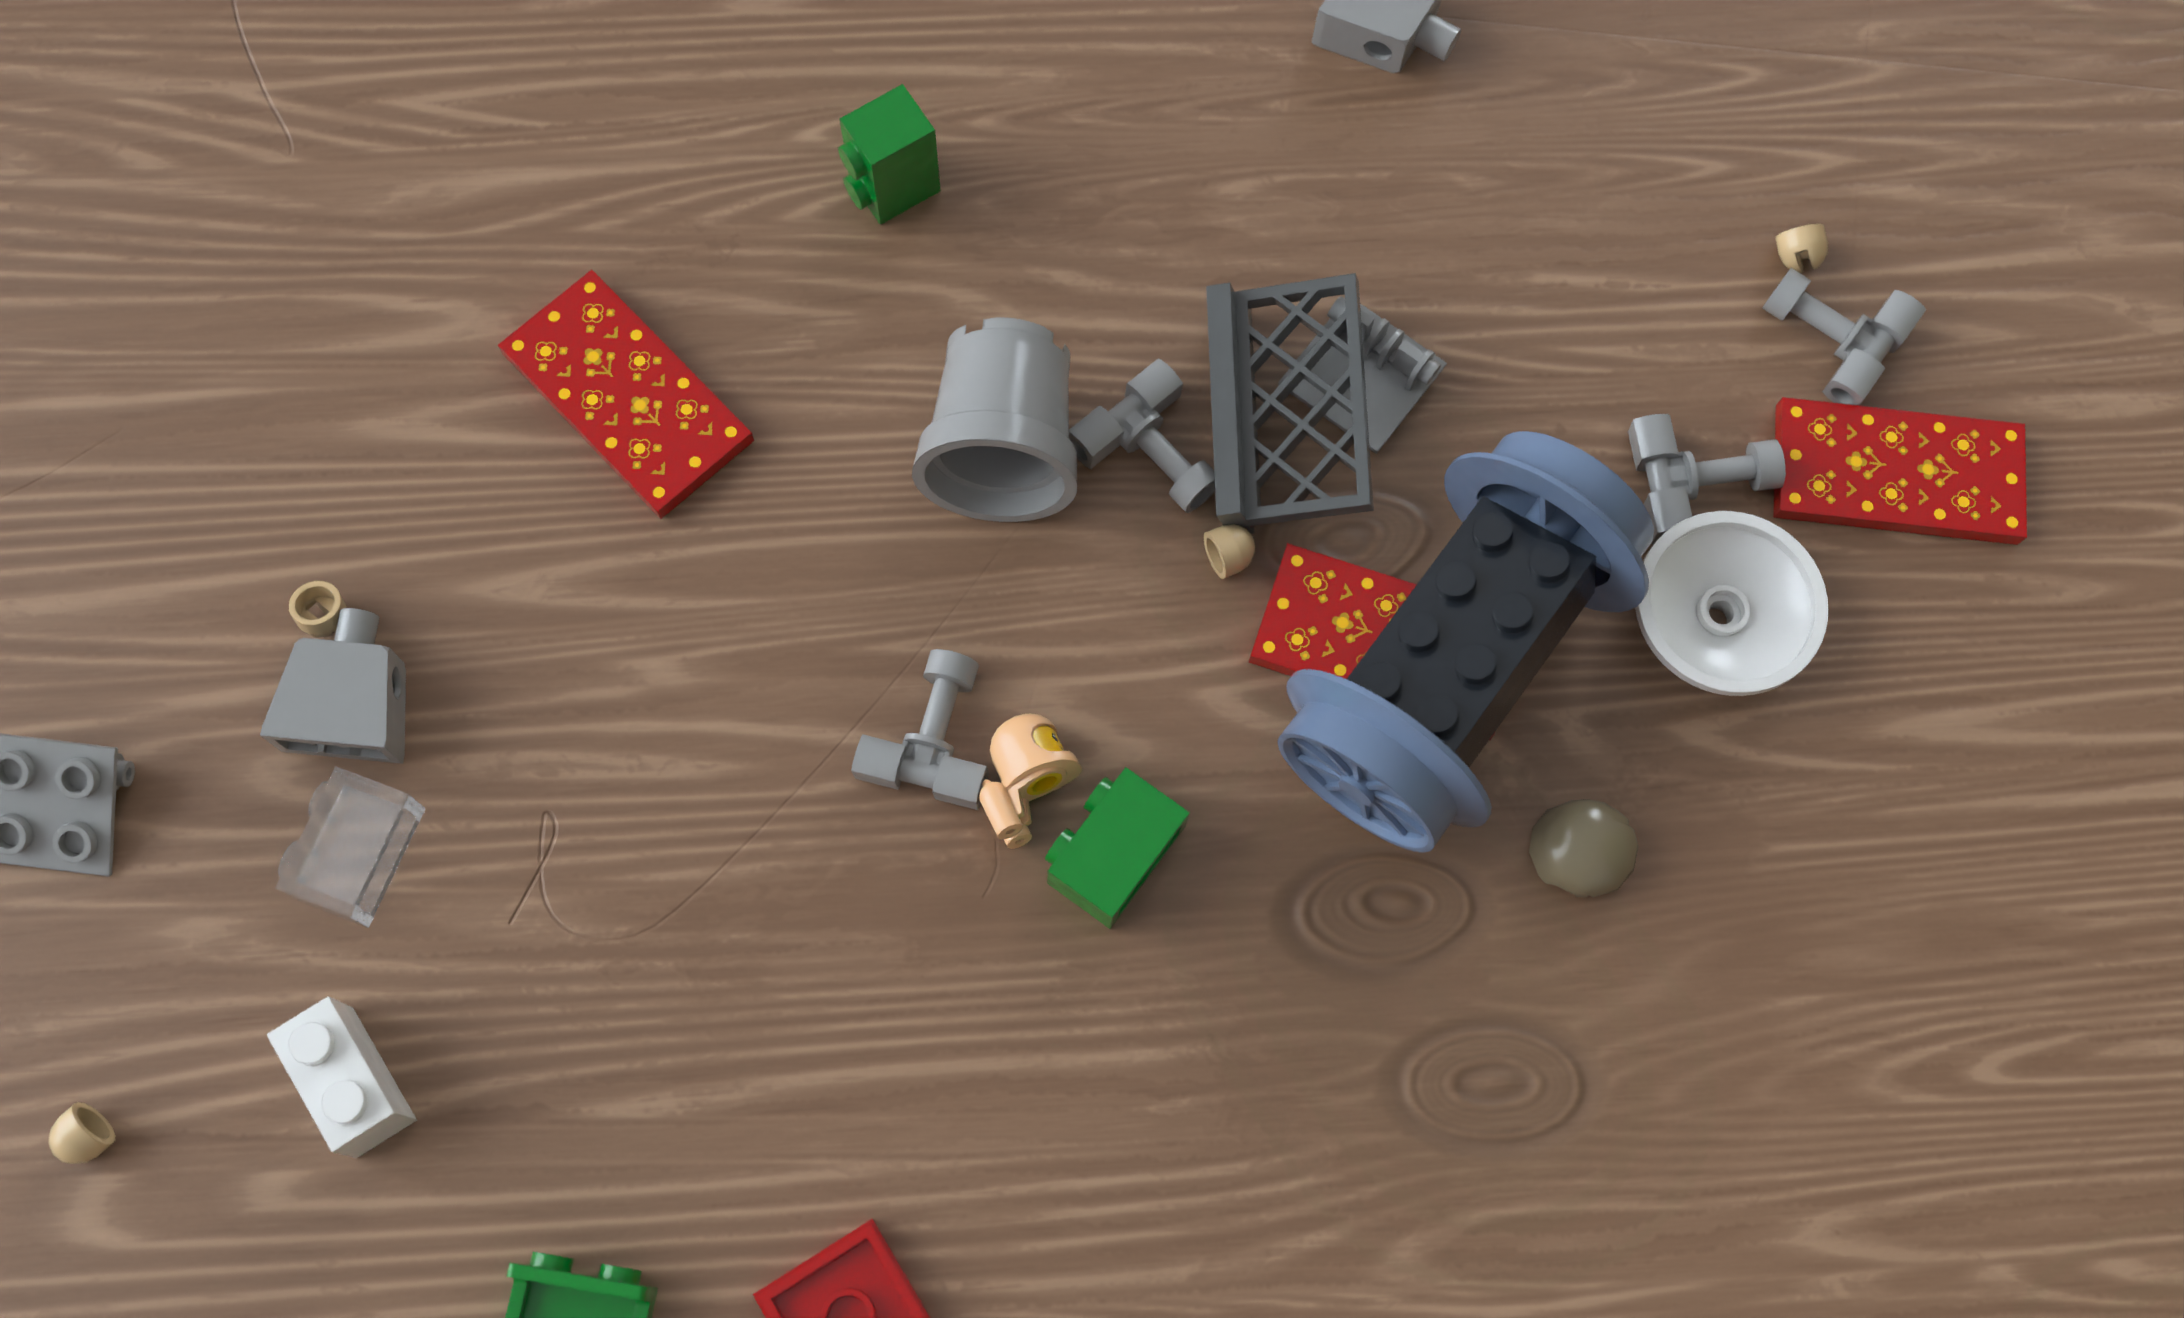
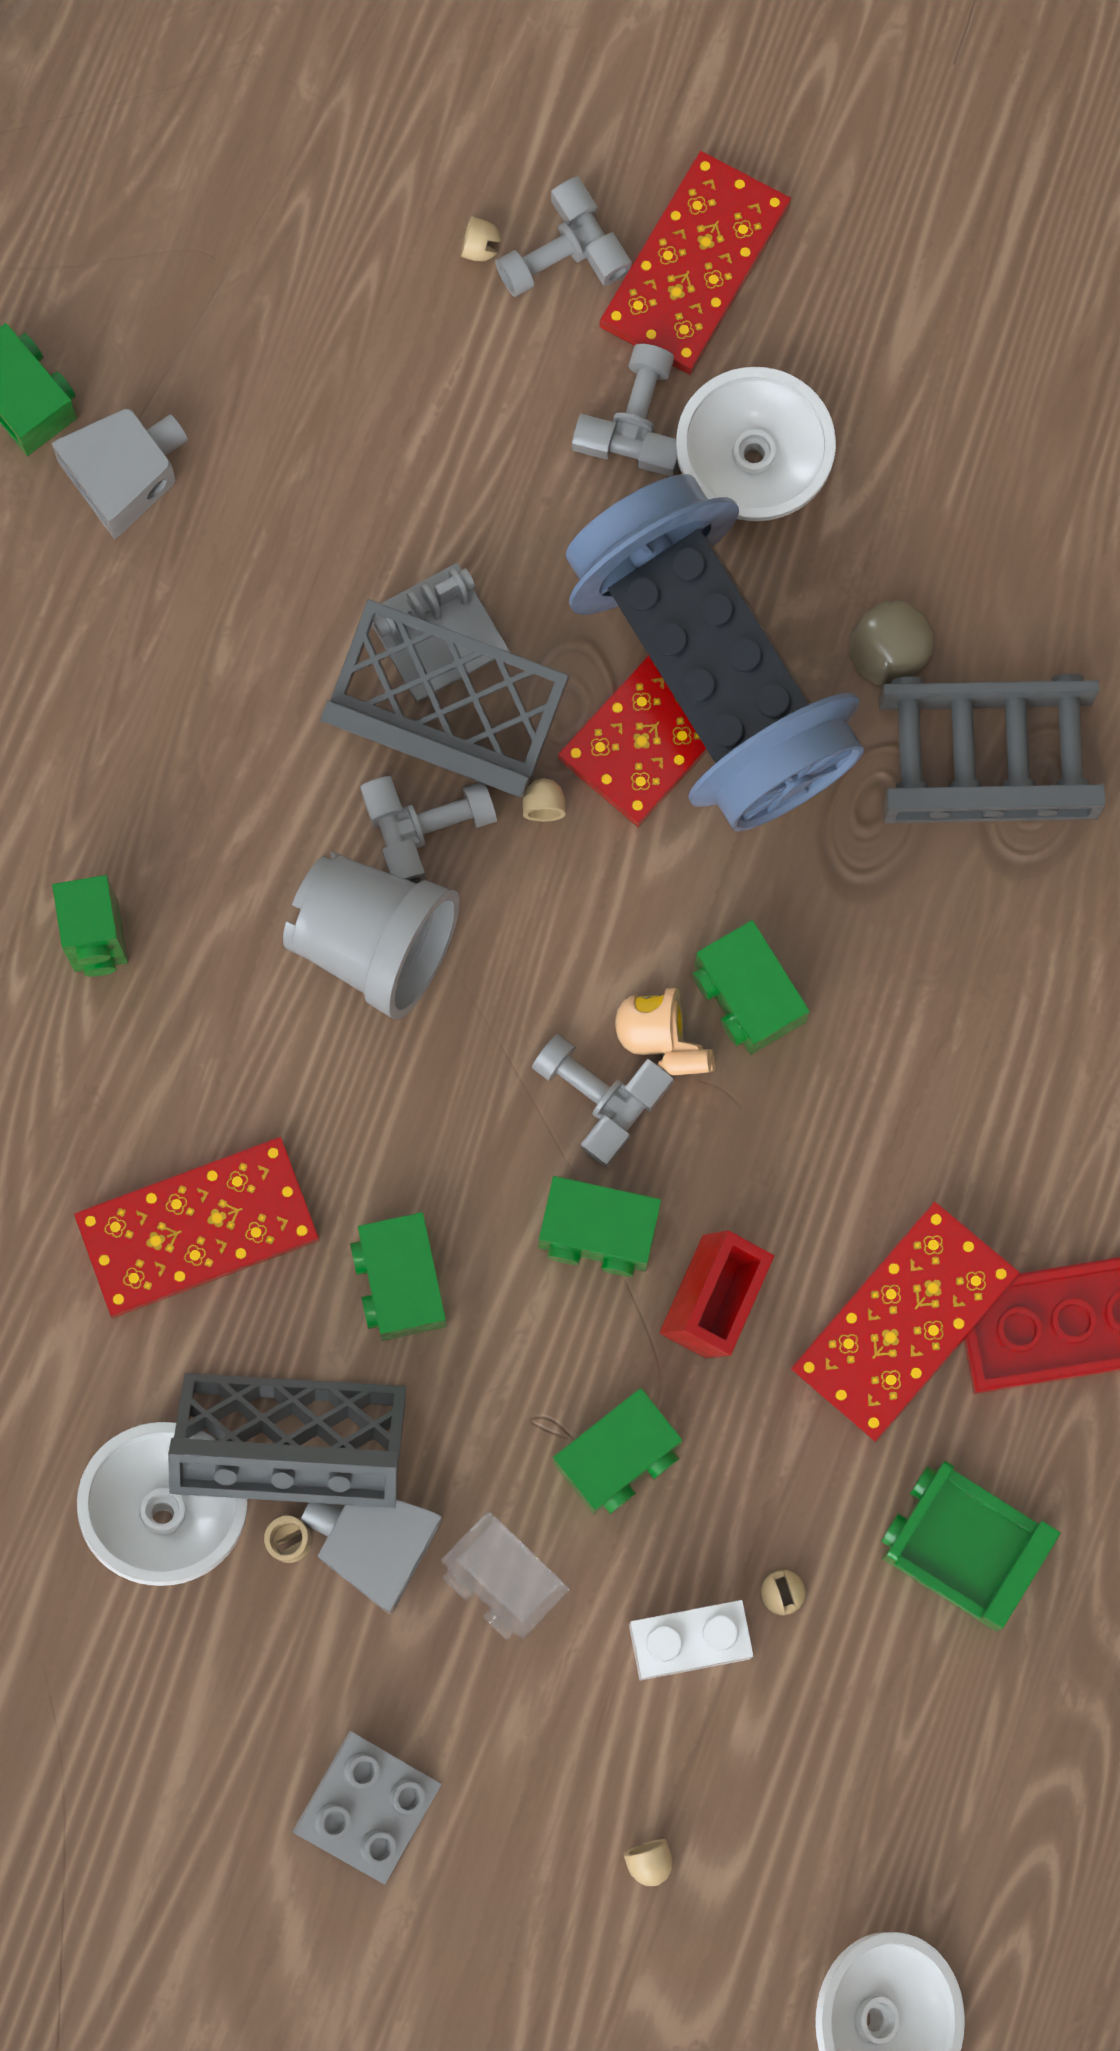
camera: 65 degrees left, 5 degrees up
(295, 428) = (123, 1492): none -> white dish
(368, 556) = (286, 1468): none -> dark grey fence
(451, 1173) = (771, 1594): none -> tan hinge
(532, 912) = (618, 1453): none -> green piece
(644, 608) = (400, 1277): none -> green piece
(745, 947) = (716, 1294): none -> red piece
(780, 791) = (598, 1226): none -> green piece
(803, 1177) = (905, 1321): none -> red tile
(1476, 1061) = (965, 797): none -> dark grey fence

